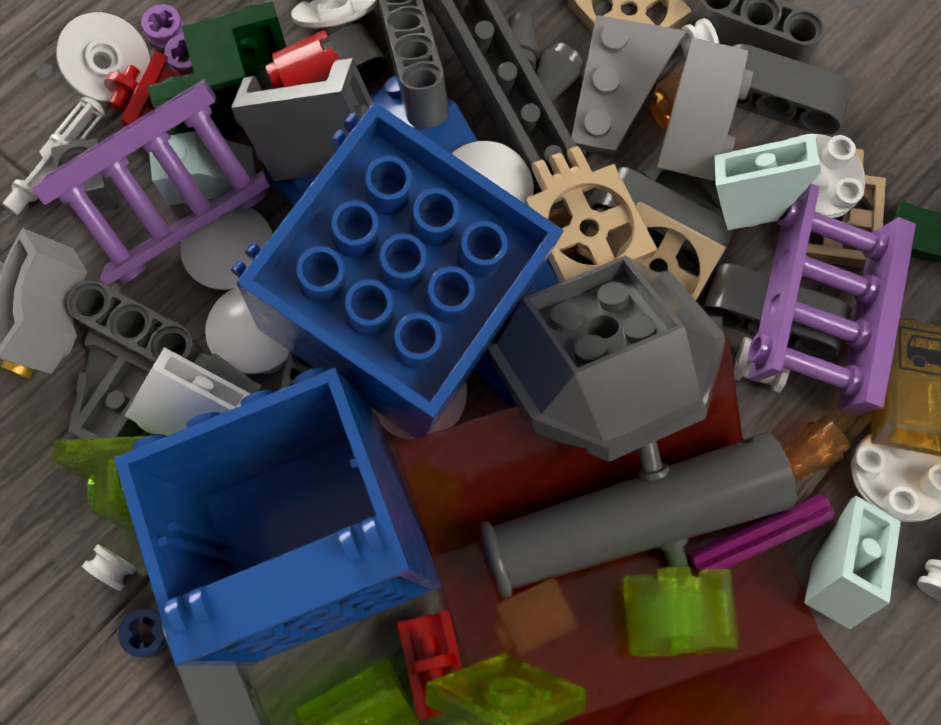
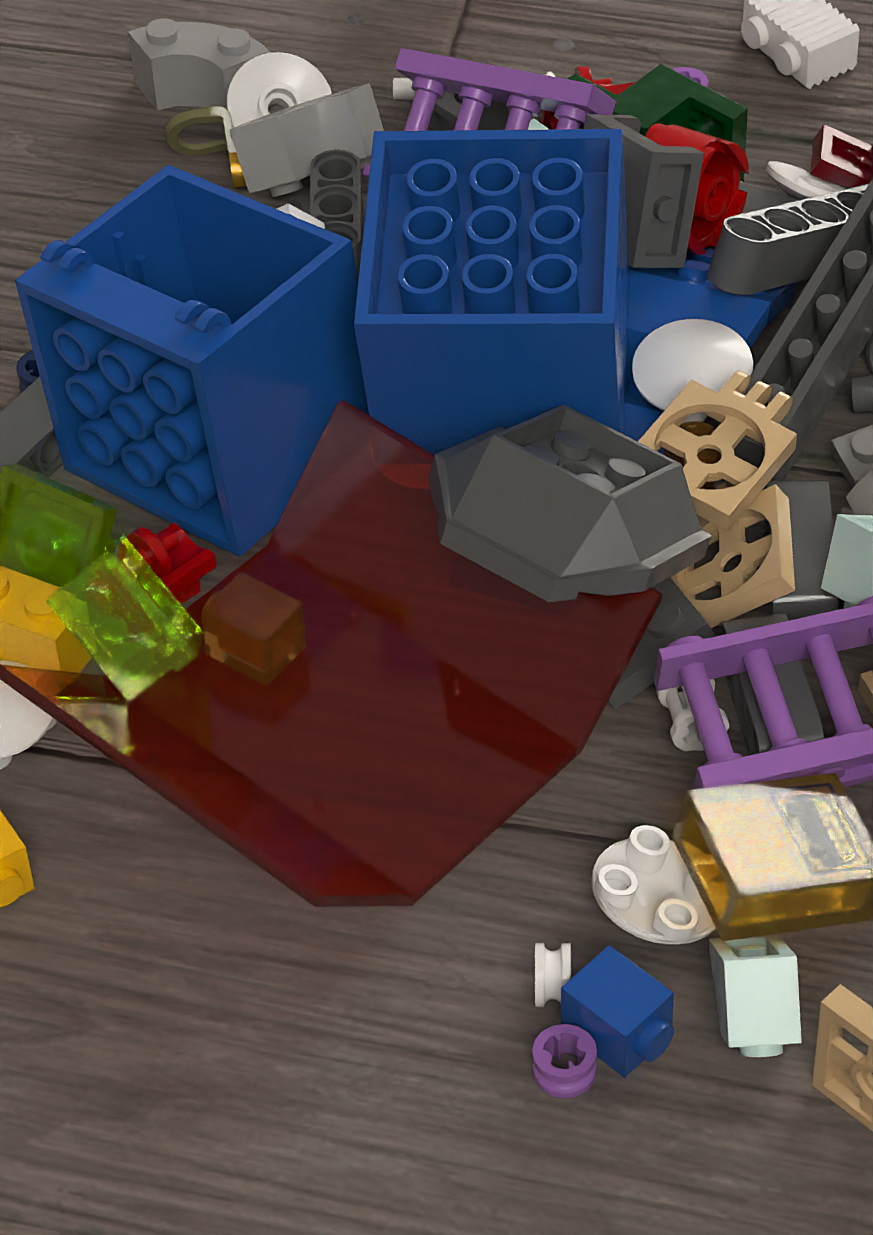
camera: 60 degrees right, 25 degrees down
(95, 36) = (609, 40): white dish -> none
(643, 513) = (436, 659): dark grey piece -> none
(680, 612) = (334, 716): clear neon green brick -> none
(762, 535) = (486, 786): magenta axle -> none
(816, 448) = (621, 793): clear orange cone -> none
(855, 565) = (509, 867): light aqua slope -> none

